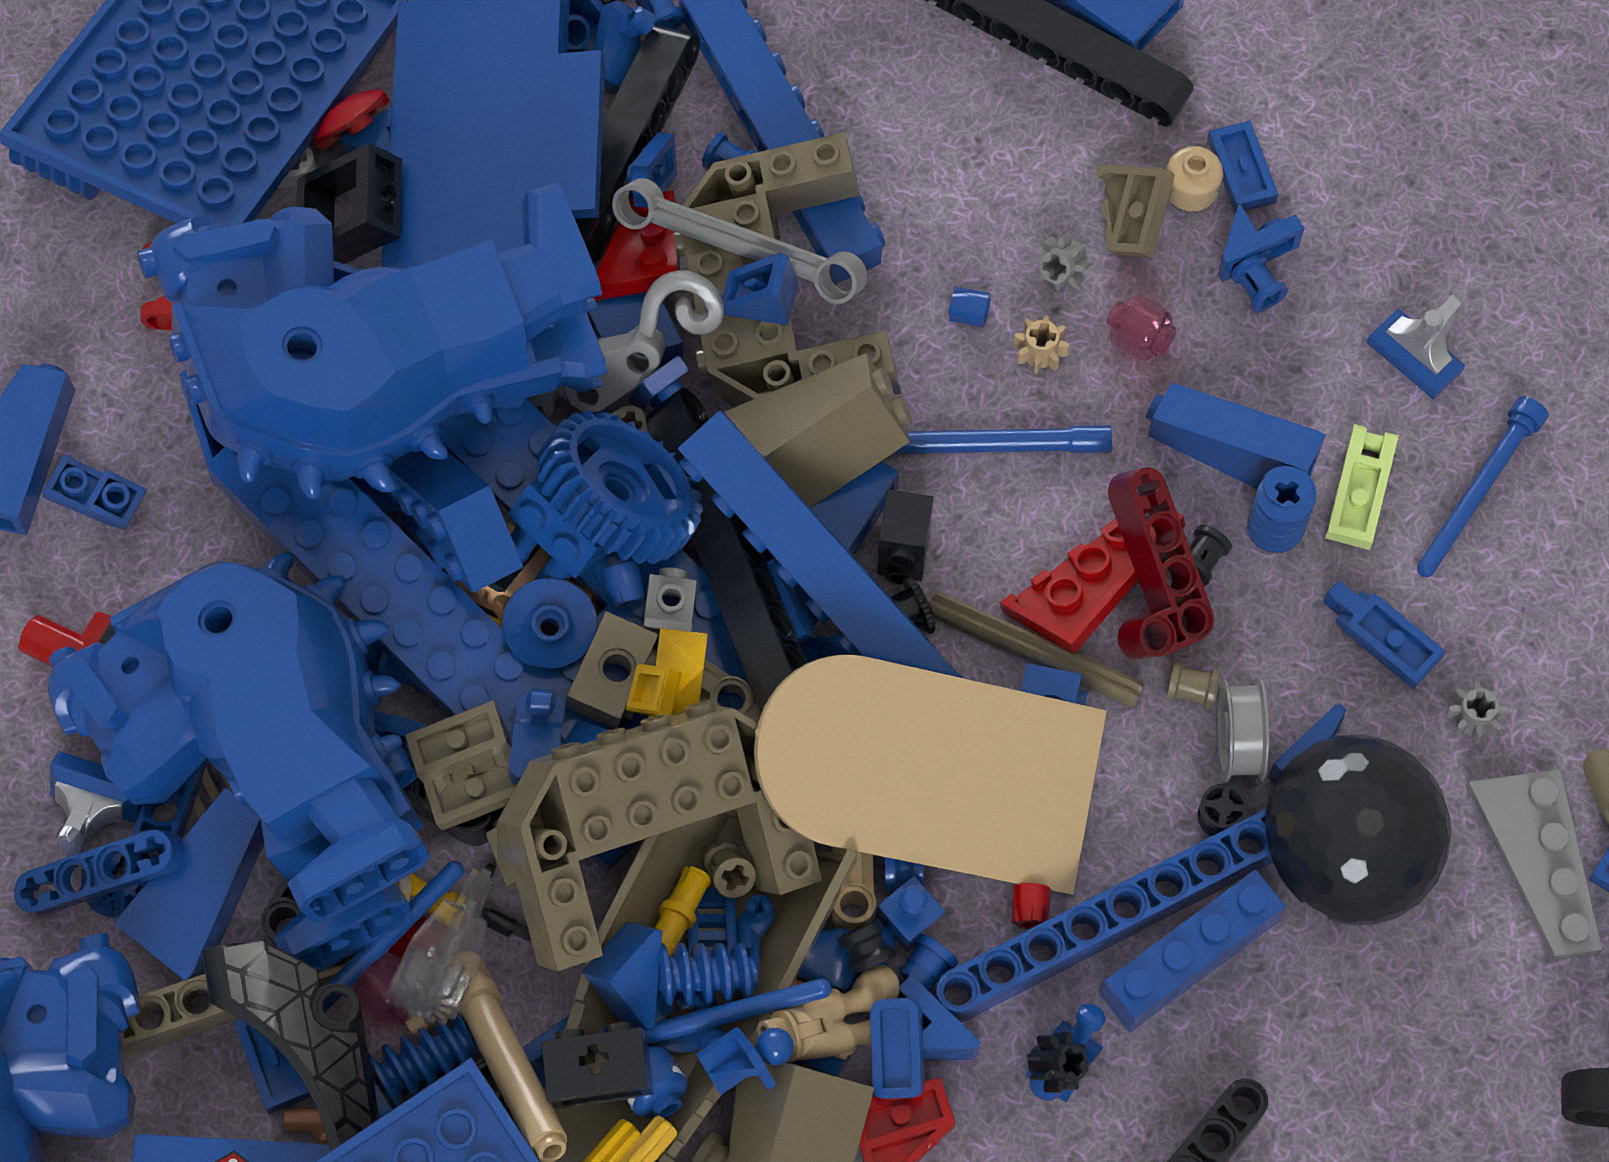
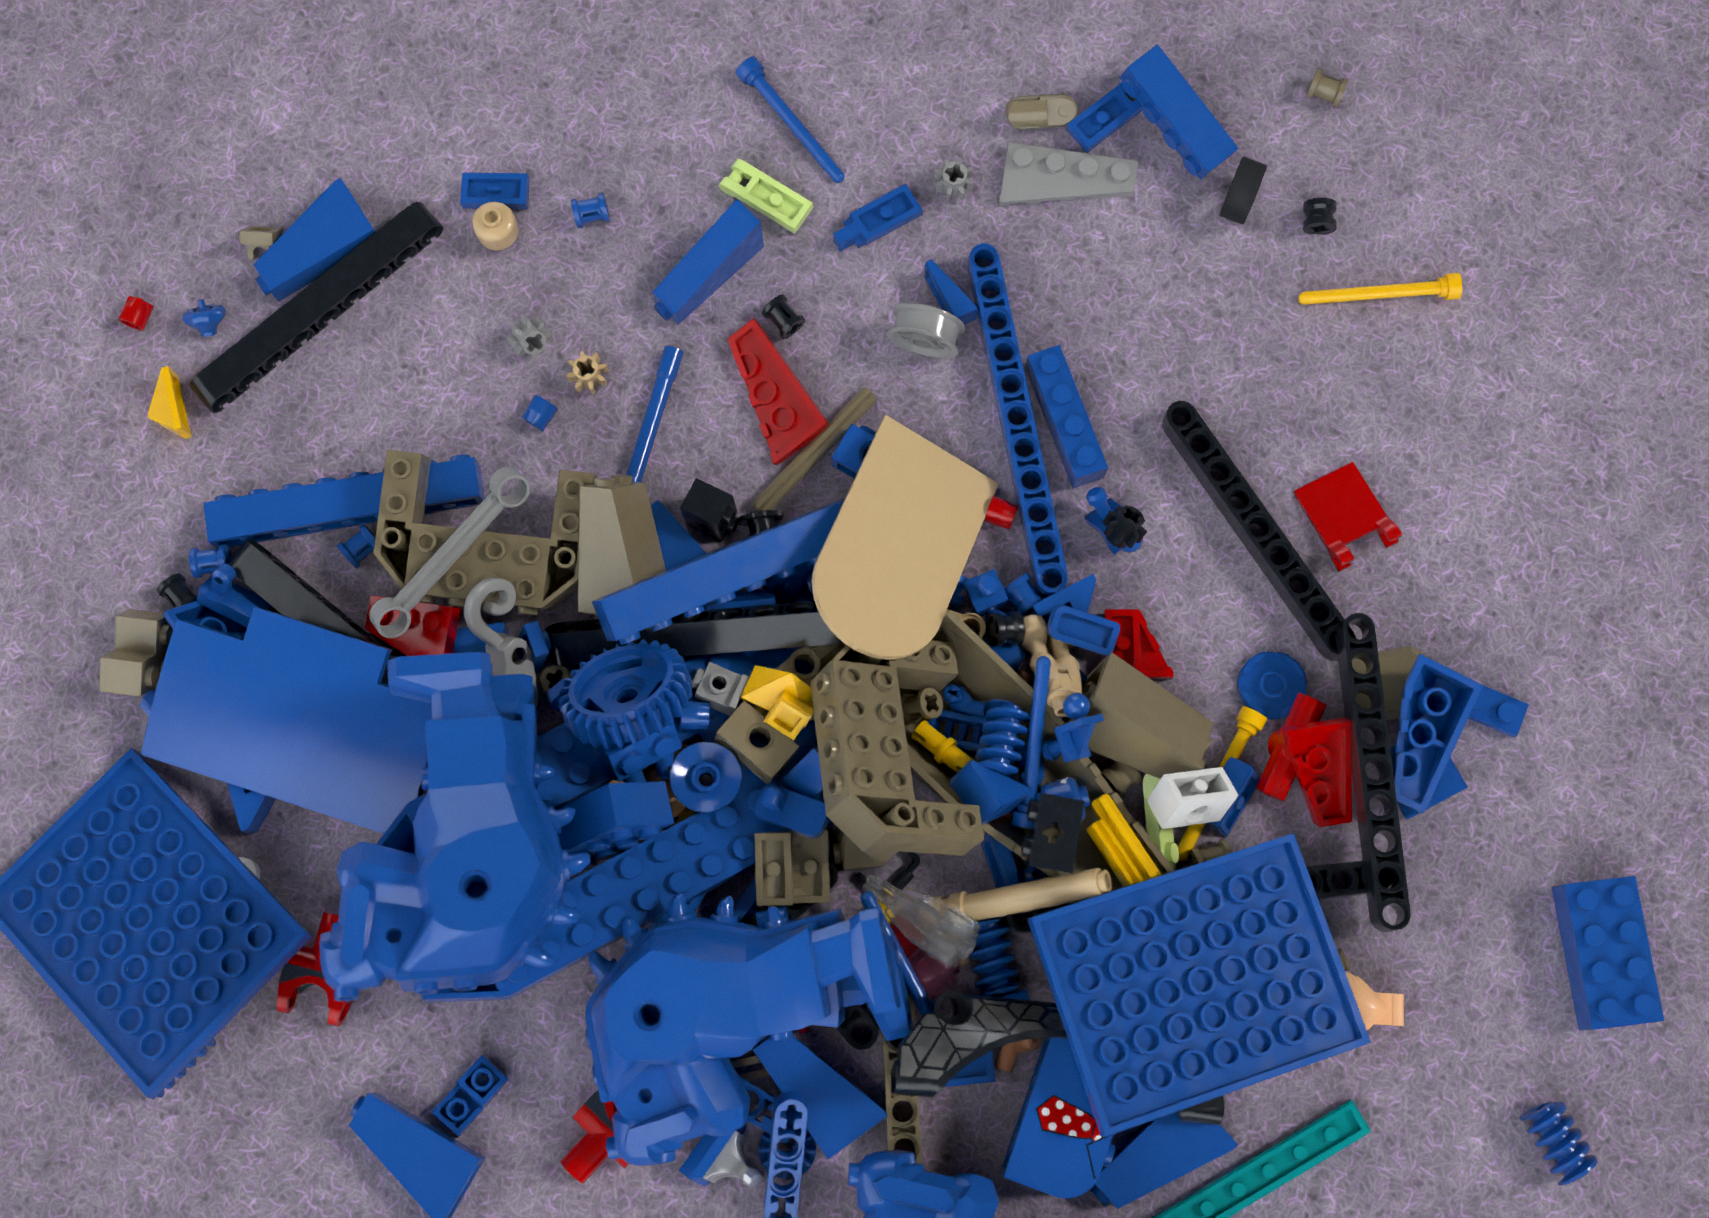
camera: 70 degrees left, 10 degrees up
(349, 114) = (224, 817): red dish -> none
(375, 221) = (325, 817): black window -> none
(654, 163) = (349, 601): blue plate -> none
(762, 290) = (498, 548): blue slope -> none
(1134, 207) = (502, 274): dark tan wing -> none
(1141, 328) = (599, 300): clear pink head -> none
(1150, 564) = (792, 342): dark red beam -> none
(1193, 684) = (876, 354): dark tan bush -> none
(1225, 801) = (974, 358): black wheel -> none
(1271, 239) = (557, 207): blue slope -> none
(1281, 509) = (773, 251): blue piece -> none
(1358, 829) = (1017, 280): black piece -> none
(1419, 346) = (676, 121): piece -> none

